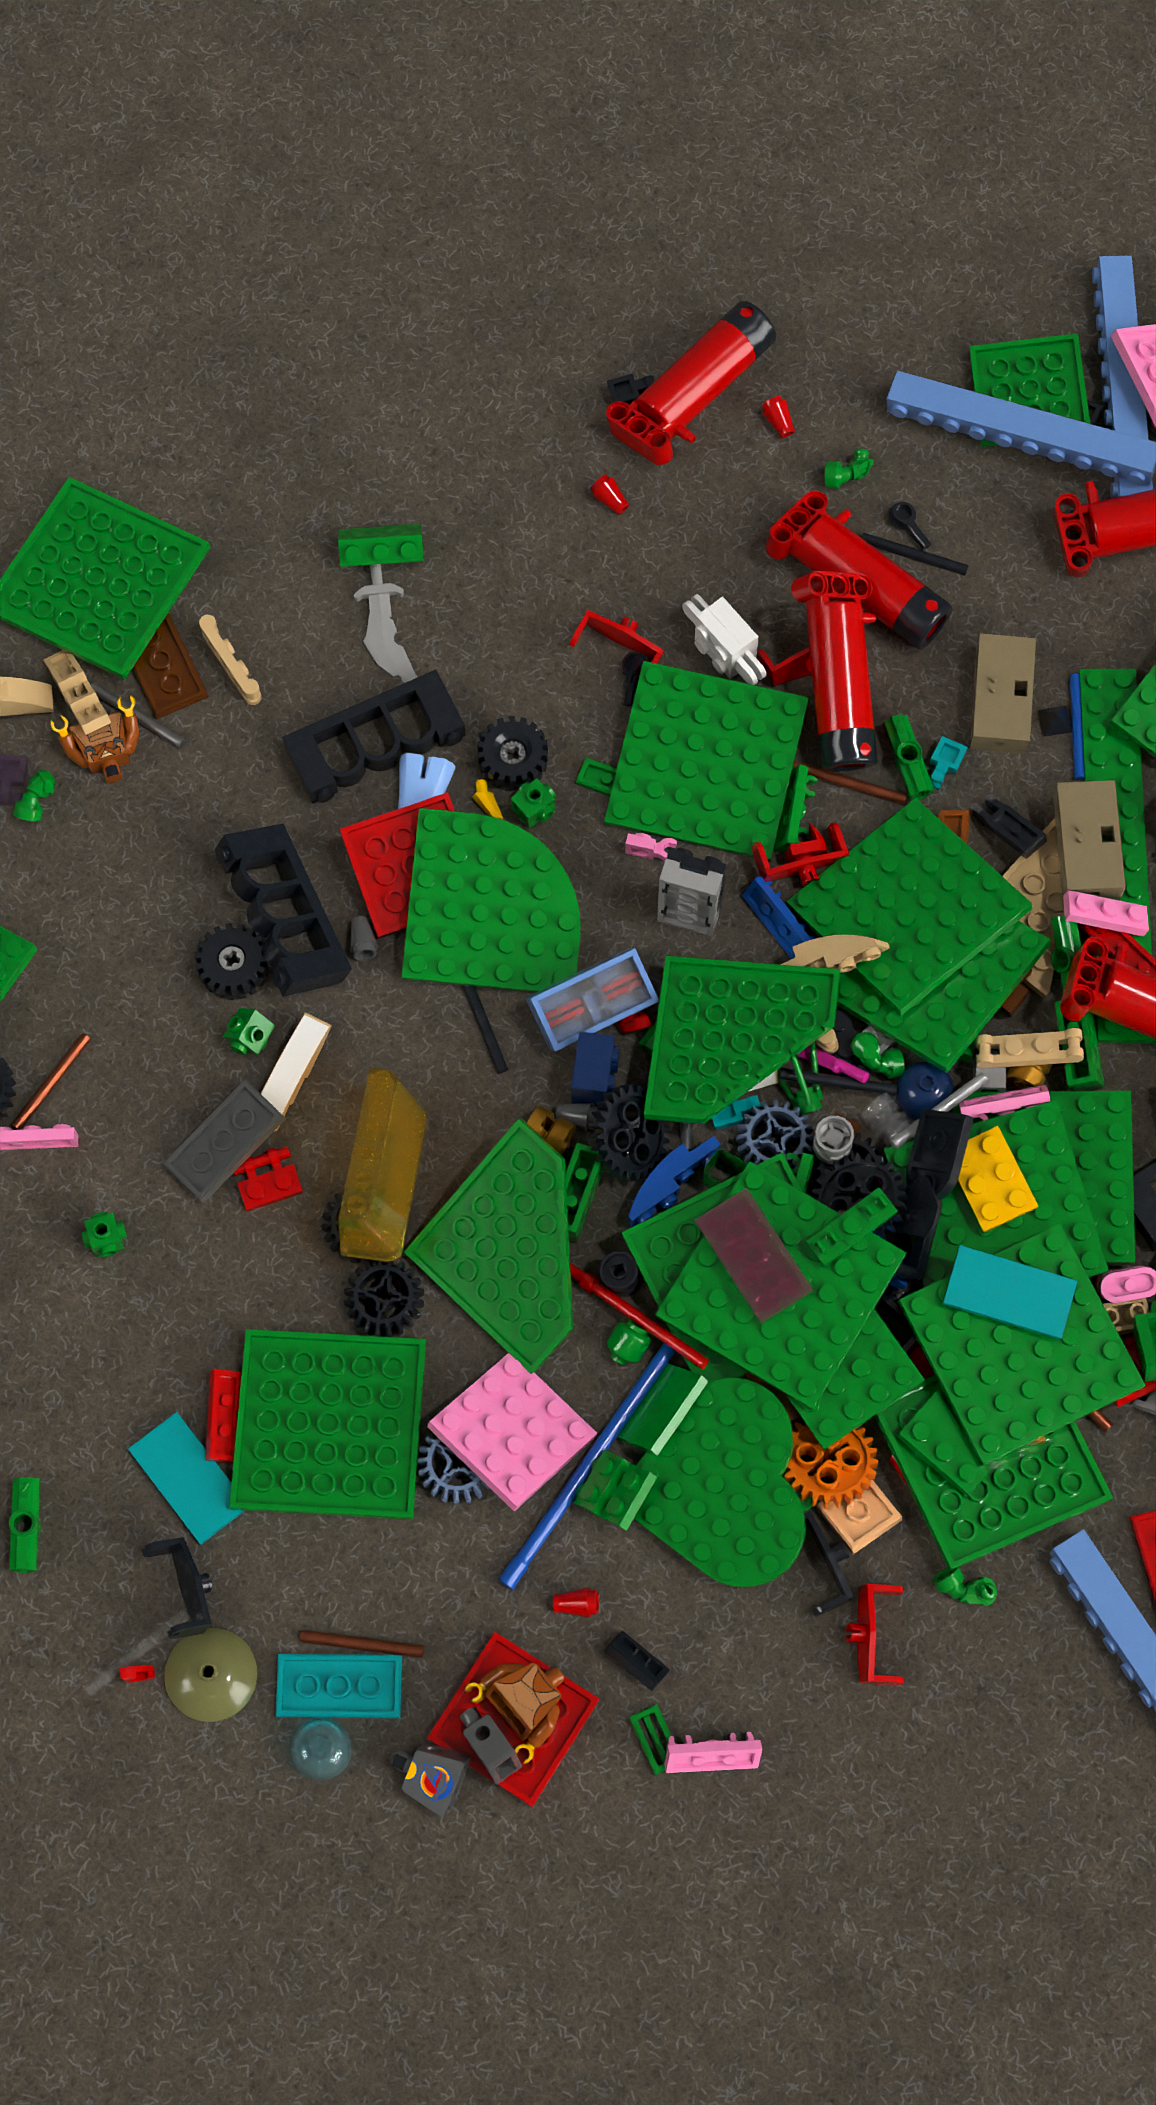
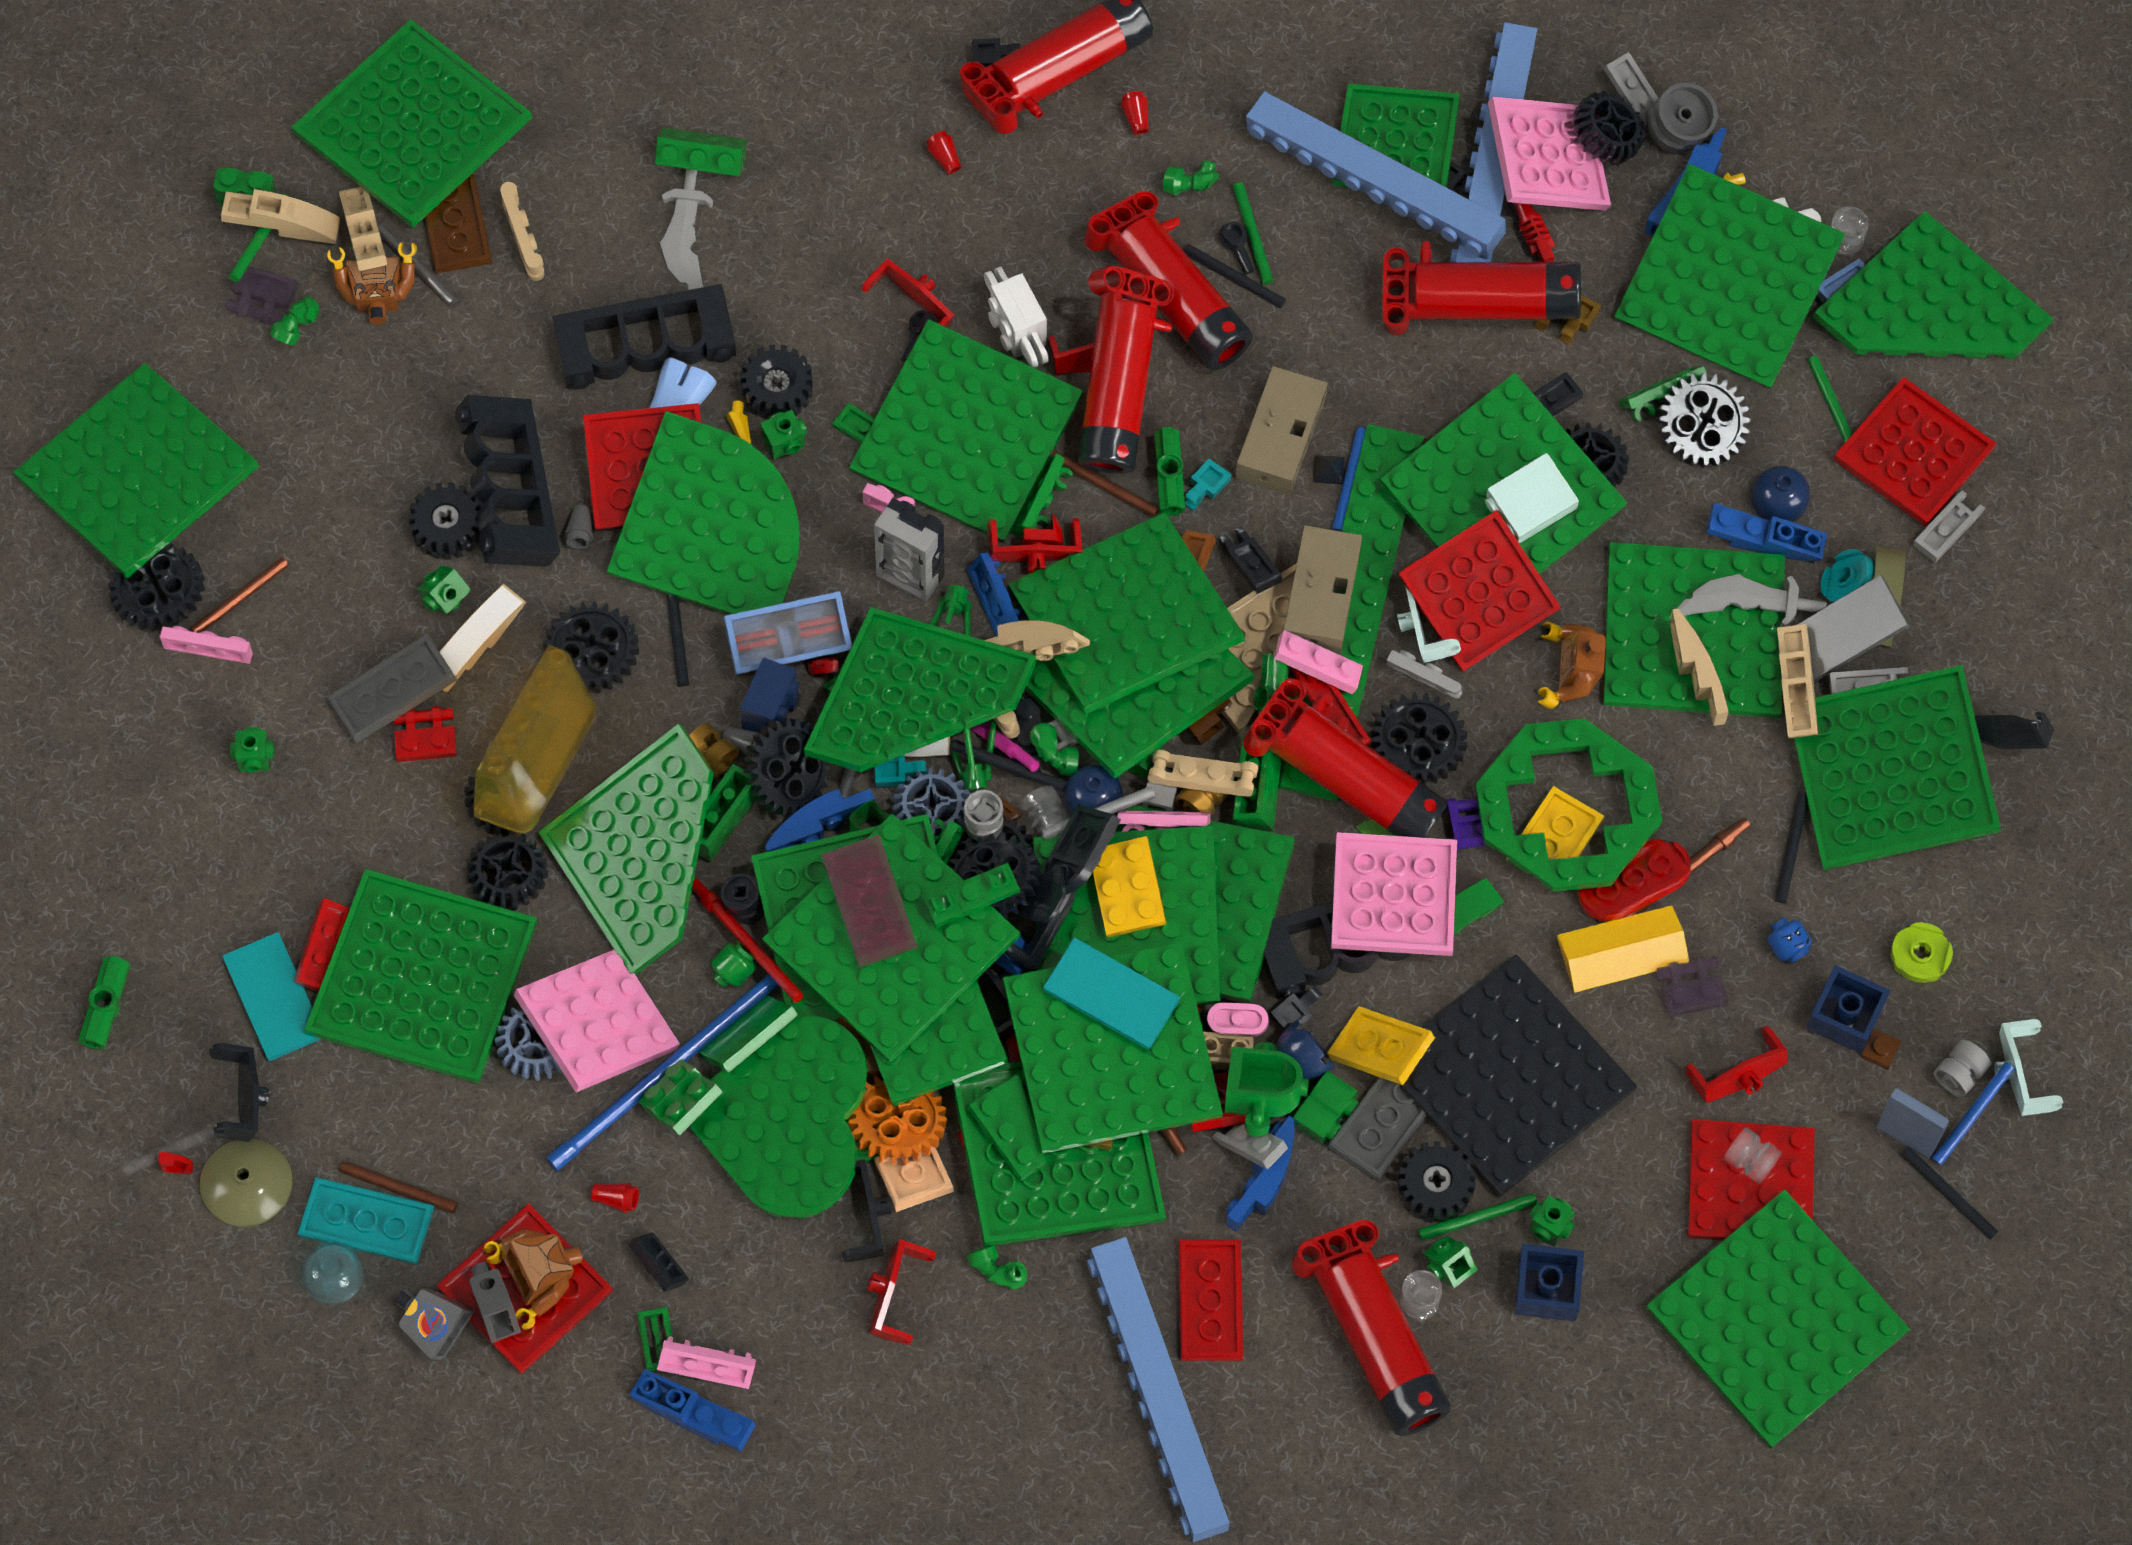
camera: 10 degrees right, 5 degrees down
(408, 1030) = (600, 625): none -> black gear
(712, 1806) = (692, 1411): none -> blue slope
(741, 931) = (954, 603): none -> green plant
(920, 509) = (1253, 234): none -> green bar

